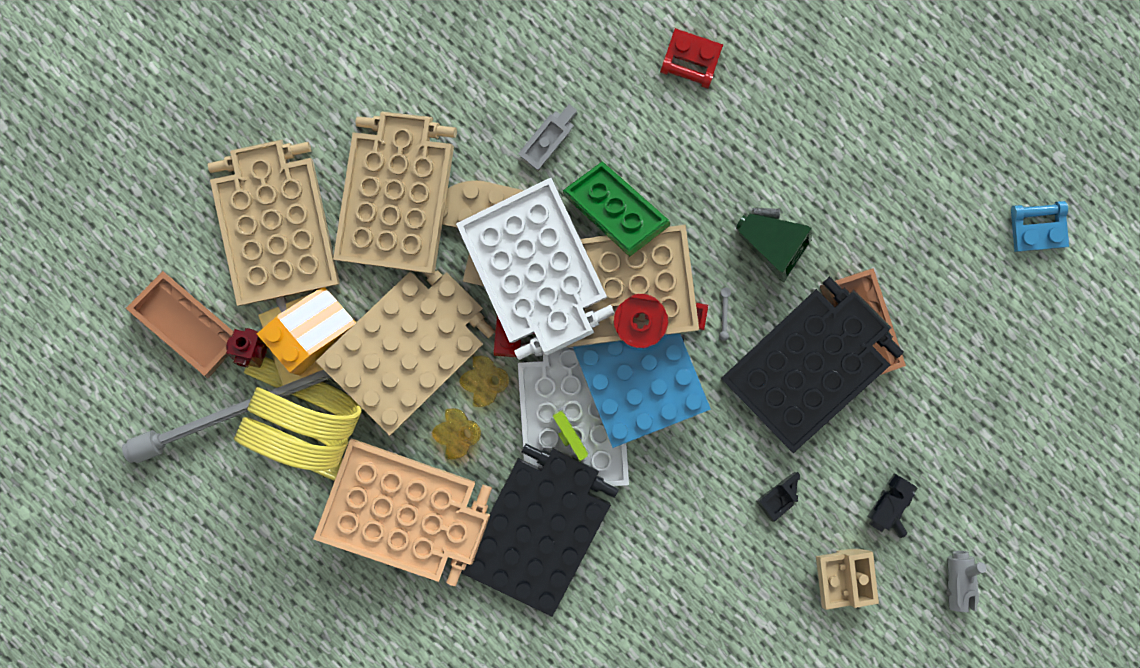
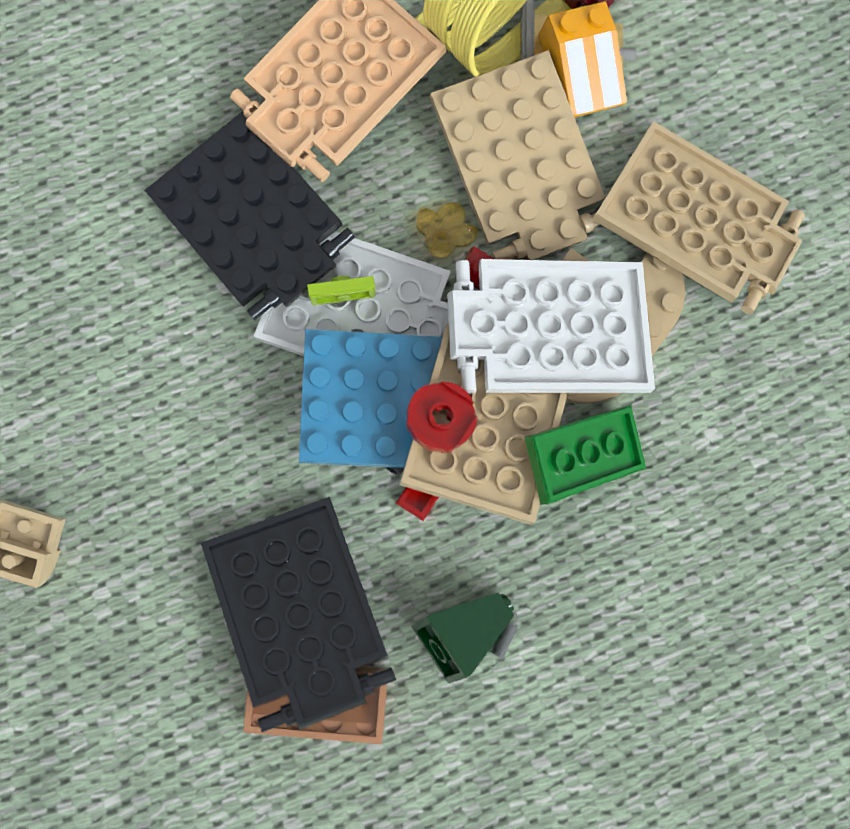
camera: 110 degrees right, 10 degrees down
(272, 222) = (719, 78): tan plate -> none
(452, 433) = (399, 170): clear yellow plate -> none
(548, 137) = (699, 417): light grey hinge -> none
(695, 51) = (738, 636): red plate -> none
(725, 293) = (428, 548): light grey hinge -> none
(780, 498) = (155, 508): black slope -> none
(891, 504) = (82, 638): black piece -> none

